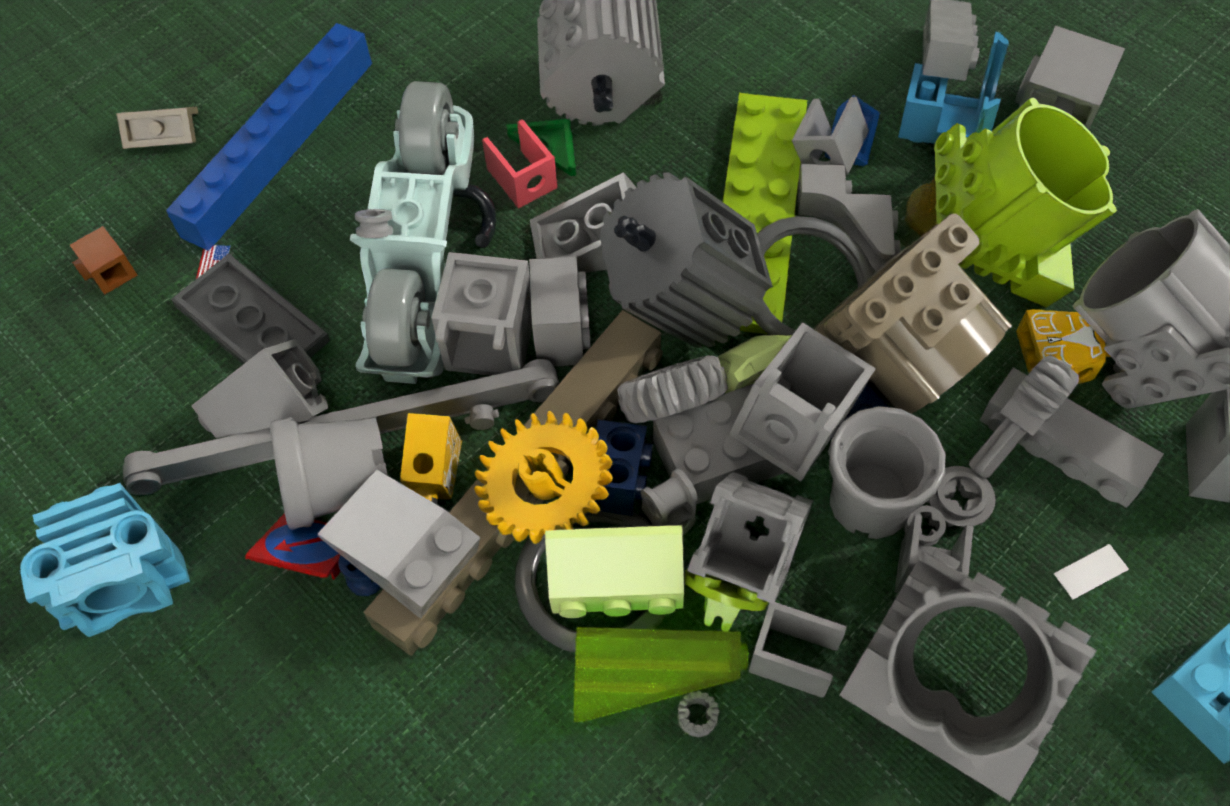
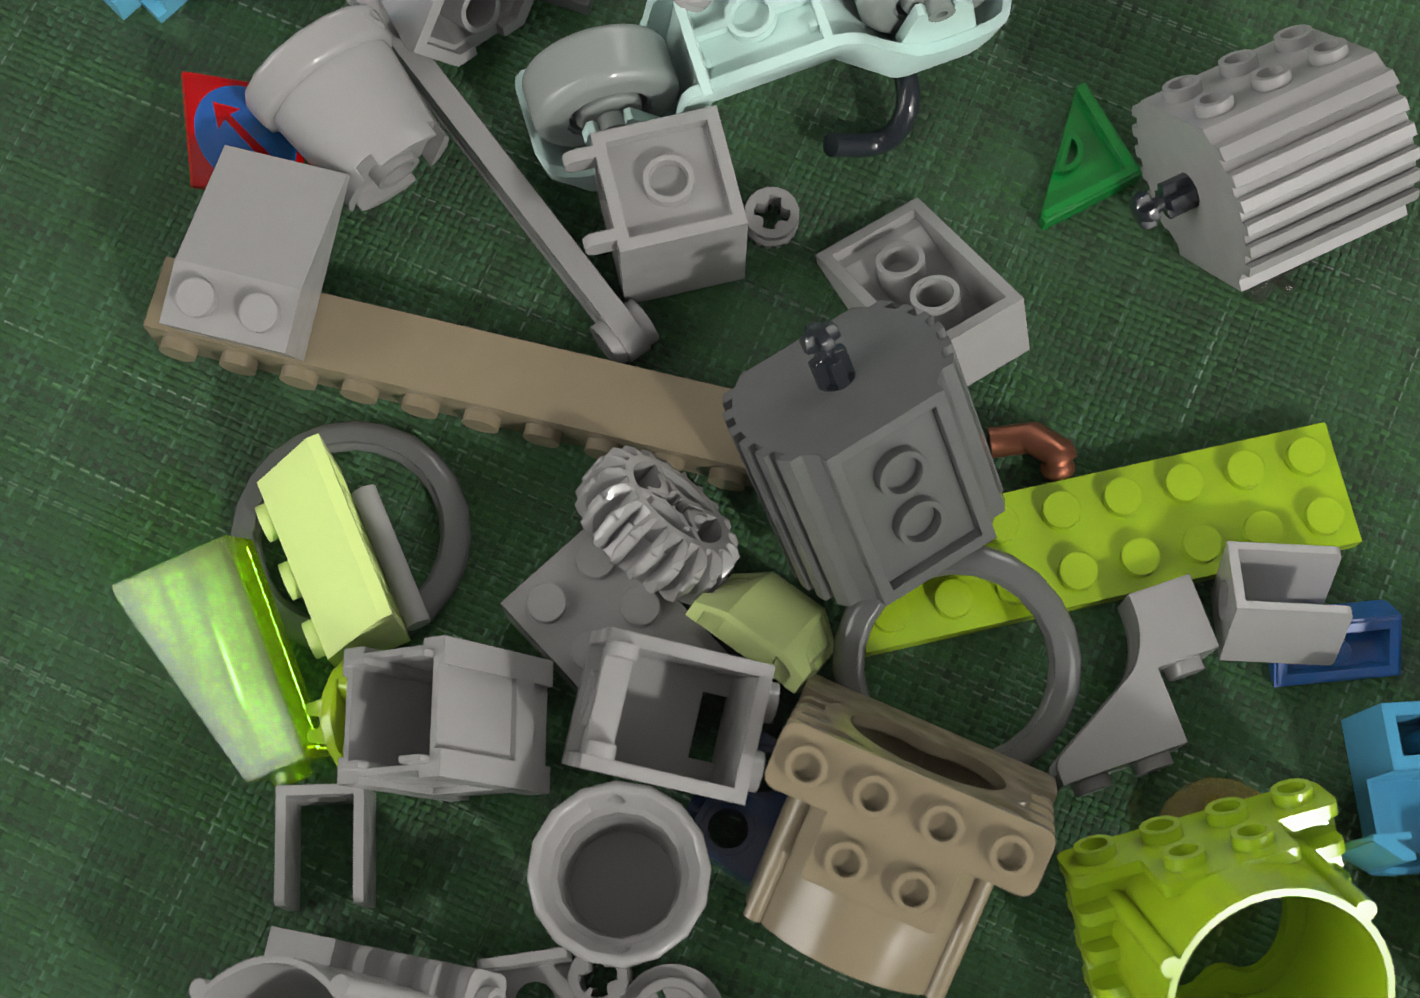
camera: 65 degrees right, 15 degrees up
(430, 456) = (420, 240): yellow torso -> none
(481, 416) = (537, 278): light grey piece -> none
(516, 182) = (1004, 181): coral piece -> none
(532, 451) = (423, 368): yellow gear -> none
(559, 310) = (734, 306): light grey brick -> none
(628, 455) = (508, 480): dark blue brick -> none
(671, 502) = (468, 590): light grey piece -> none
(684, 714) = (206, 766): light grey bush -> none

